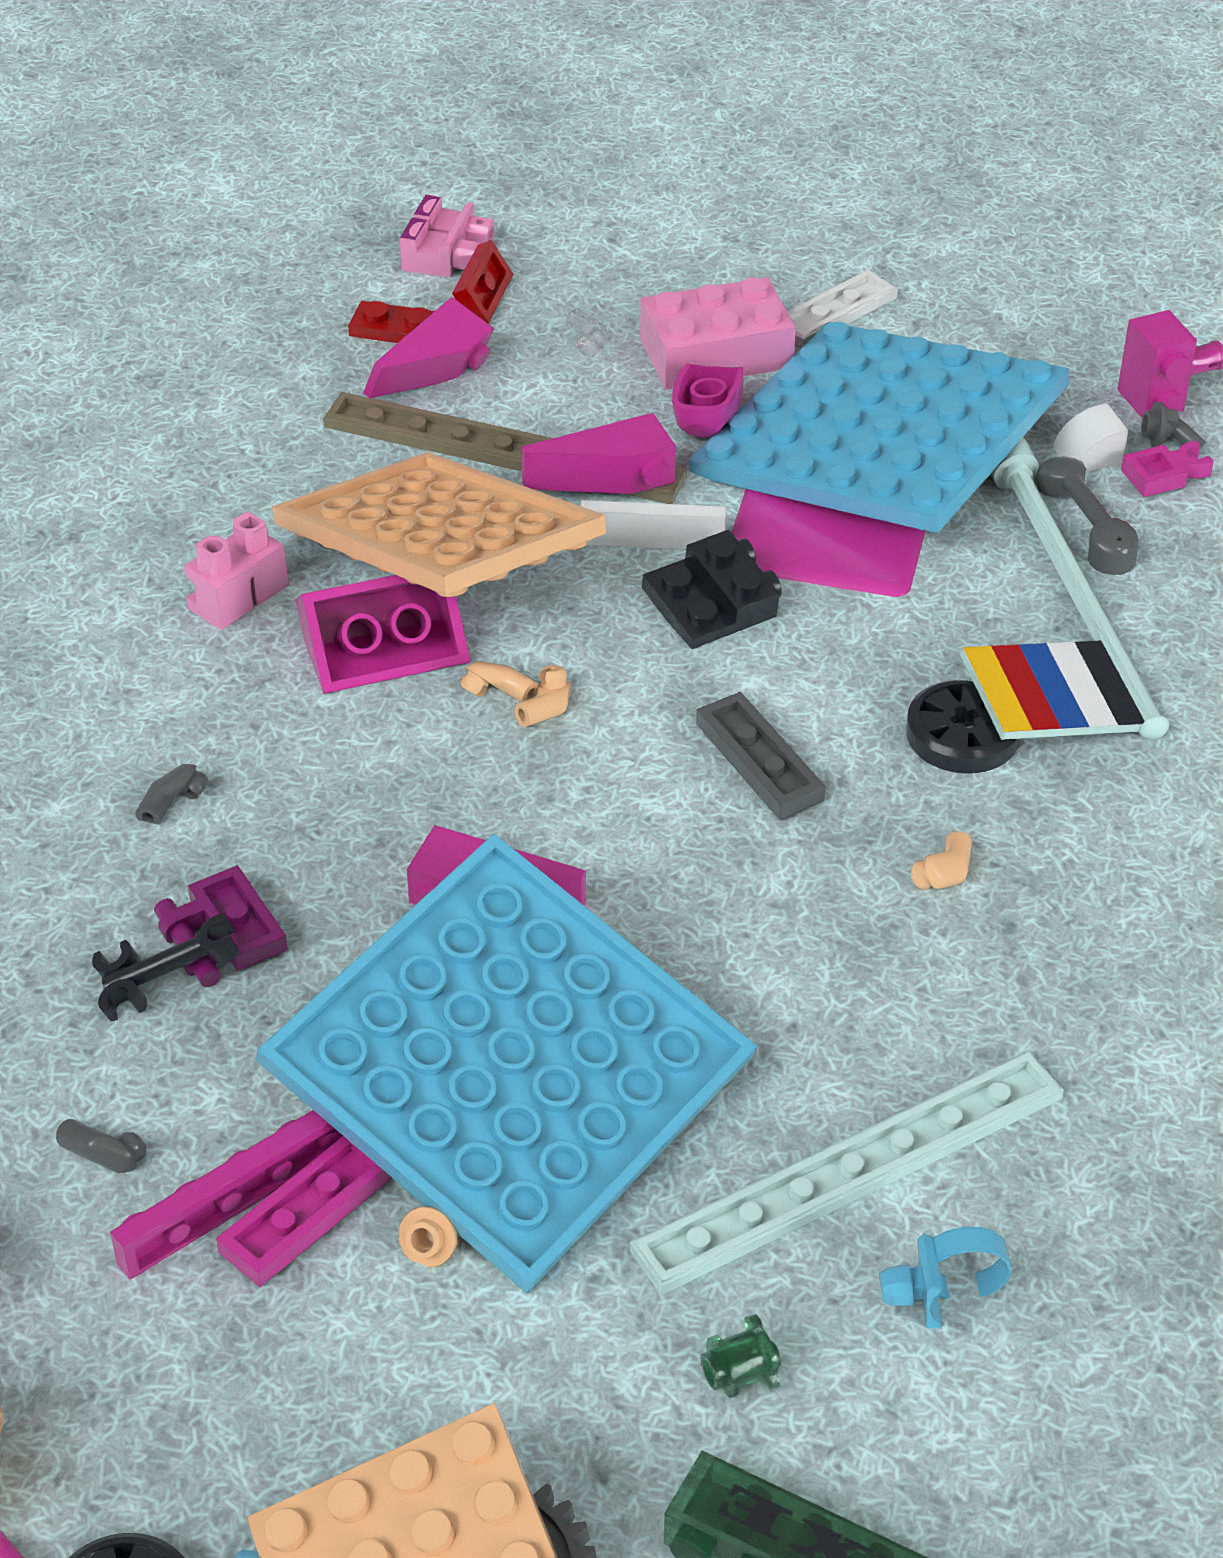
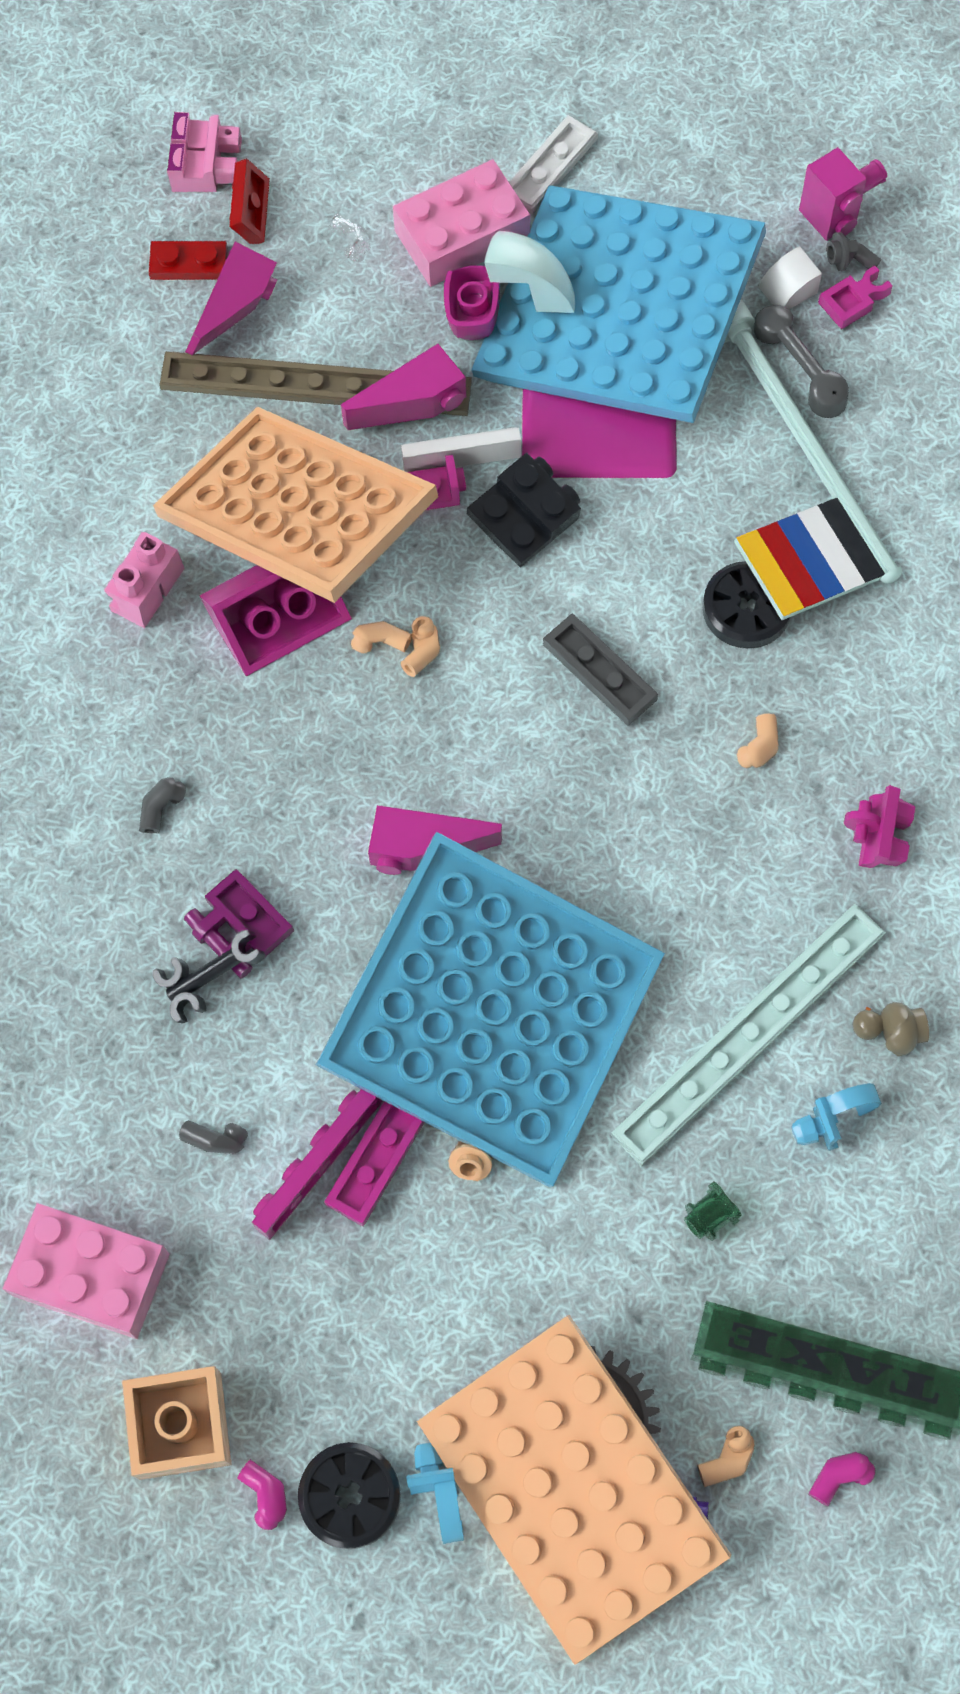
camera: 10 degrees left, 25 degrees up
(615, 557) = (448, 482): none -> dark pink bracket
(778, 364) = (524, 260): none -> light aqua brick
(1058, 1194) = (900, 1026): none -> dark tan animal
(1076, 968) = (875, 828): none -> dark pink hips

